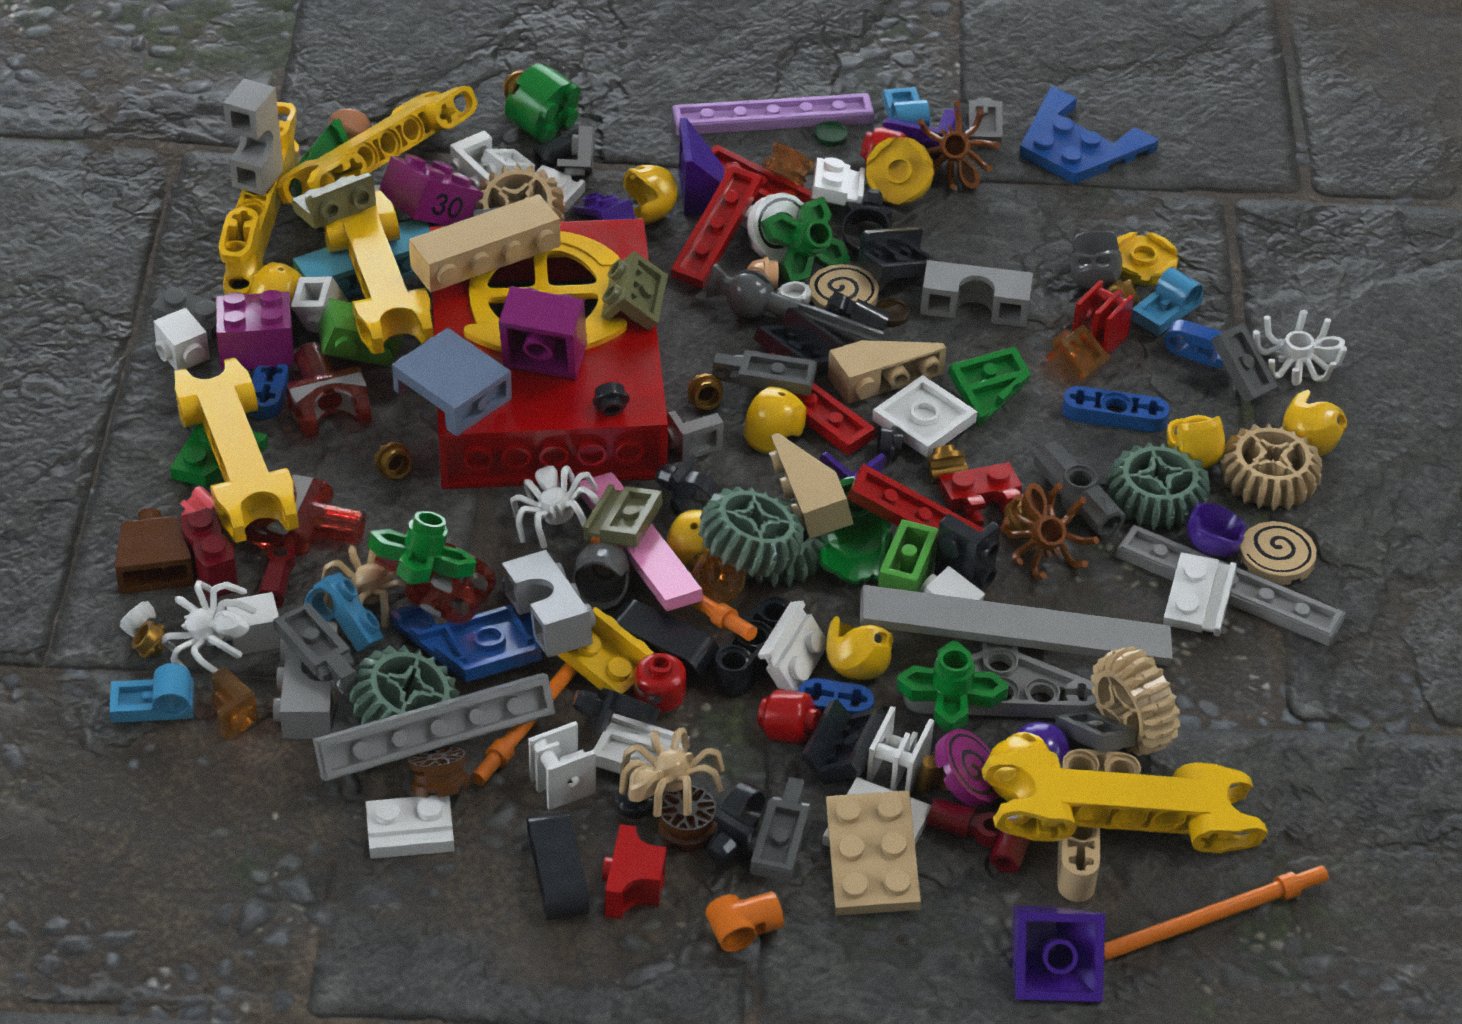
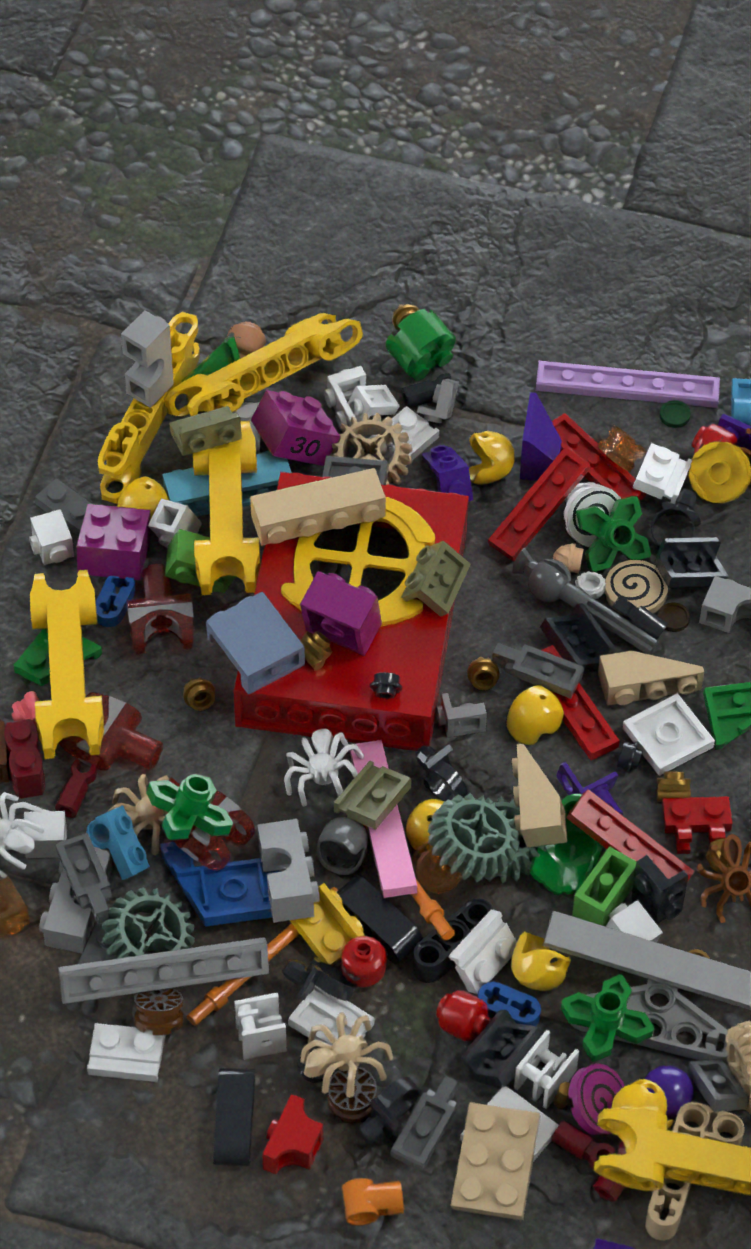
camera: 15 degrees right, 10 degrees up
(522, 378) = (316, 649): none -> pearl gold plate

